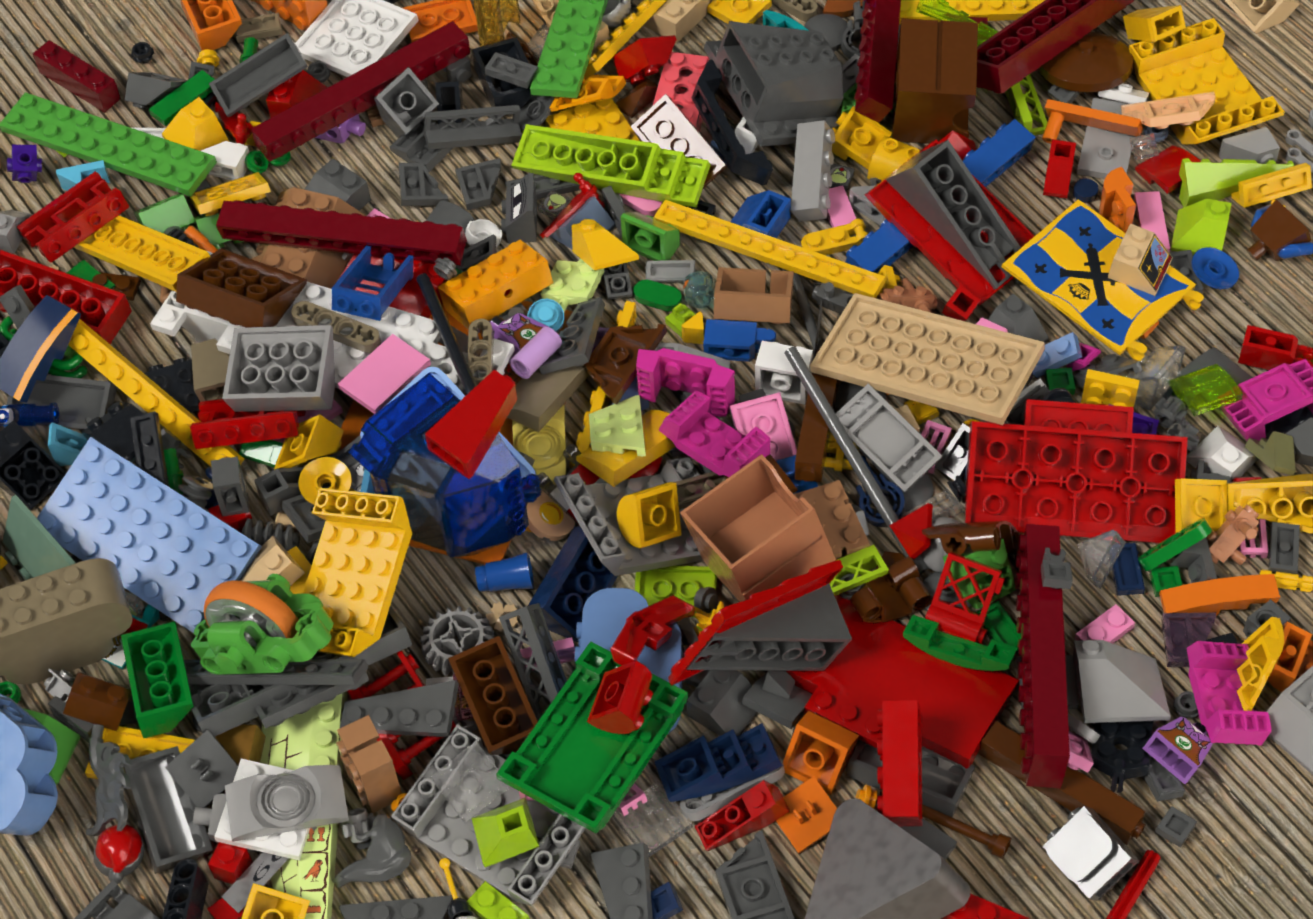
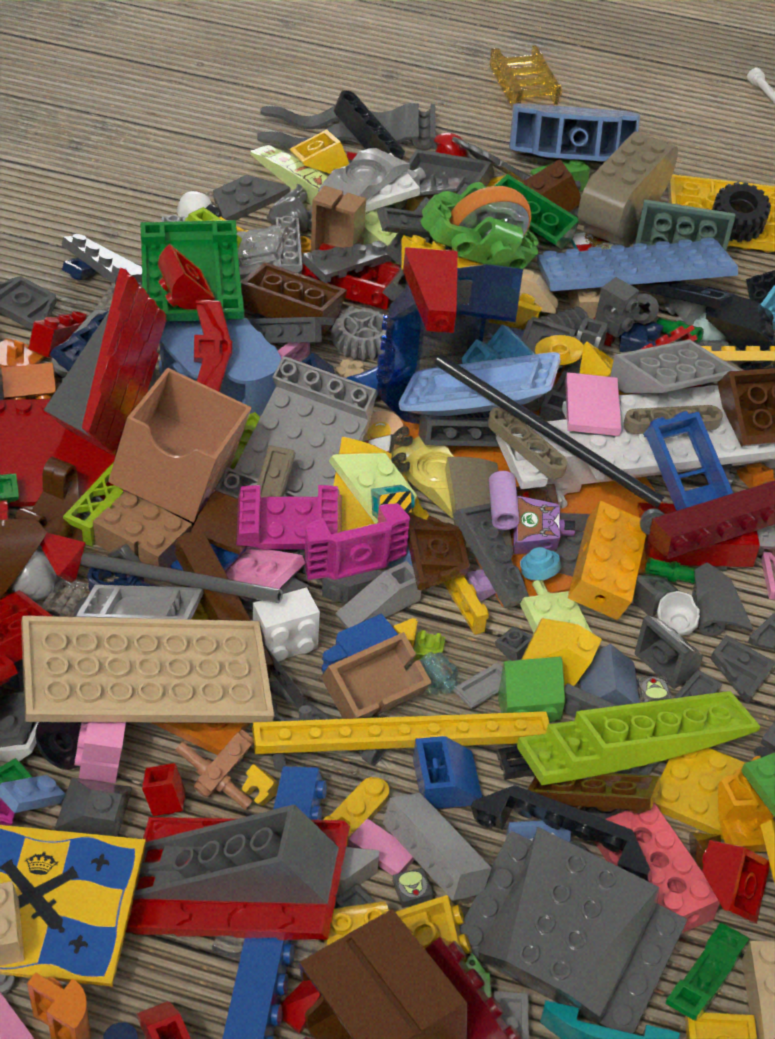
camera: 135 degrees right, 10 degrees down
(587, 191) = (629, 677): red piece -> none
(638, 396) = (392, 495): none -> brick
(650, 515) = (286, 424): yellow brick -> none
(657, 295) = (475, 657): green tile -> none
(696, 43) = (709, 973): none -> green slope

